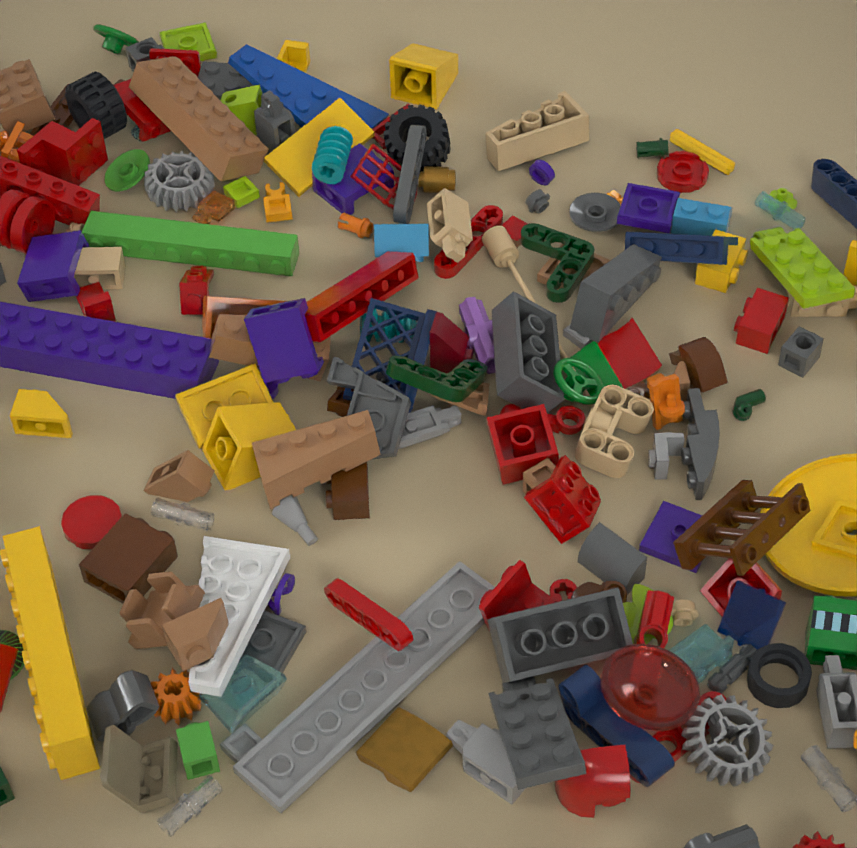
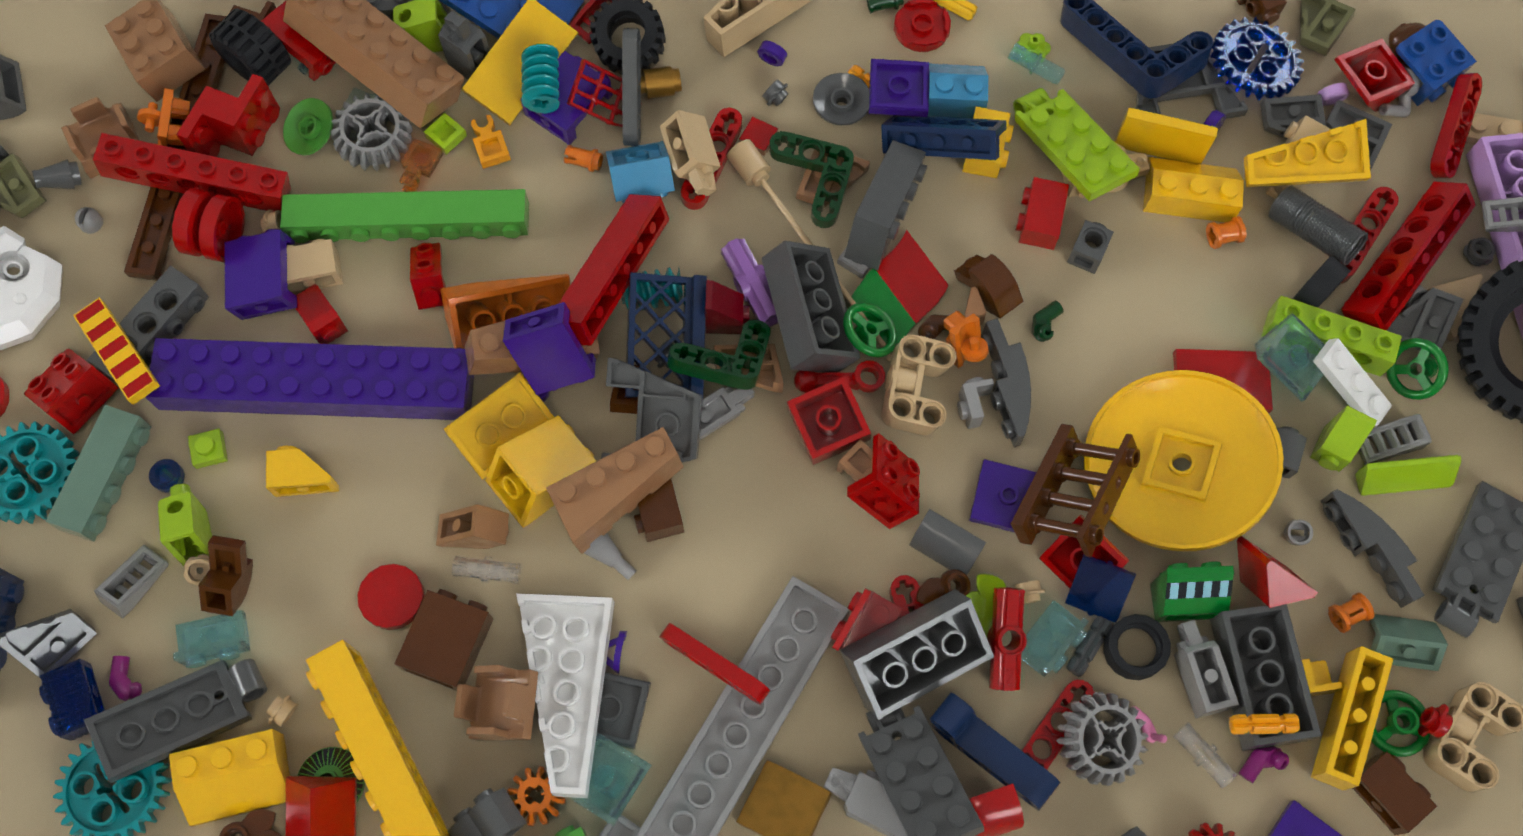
camera: 15 degrees left, 20 degrees up
(196, 634) = (546, 737): medium nougat slope -> none
(652, 675) = (1037, 694): clear red dish -> none
(778, 750) = (1149, 728): none -> bright pink piece

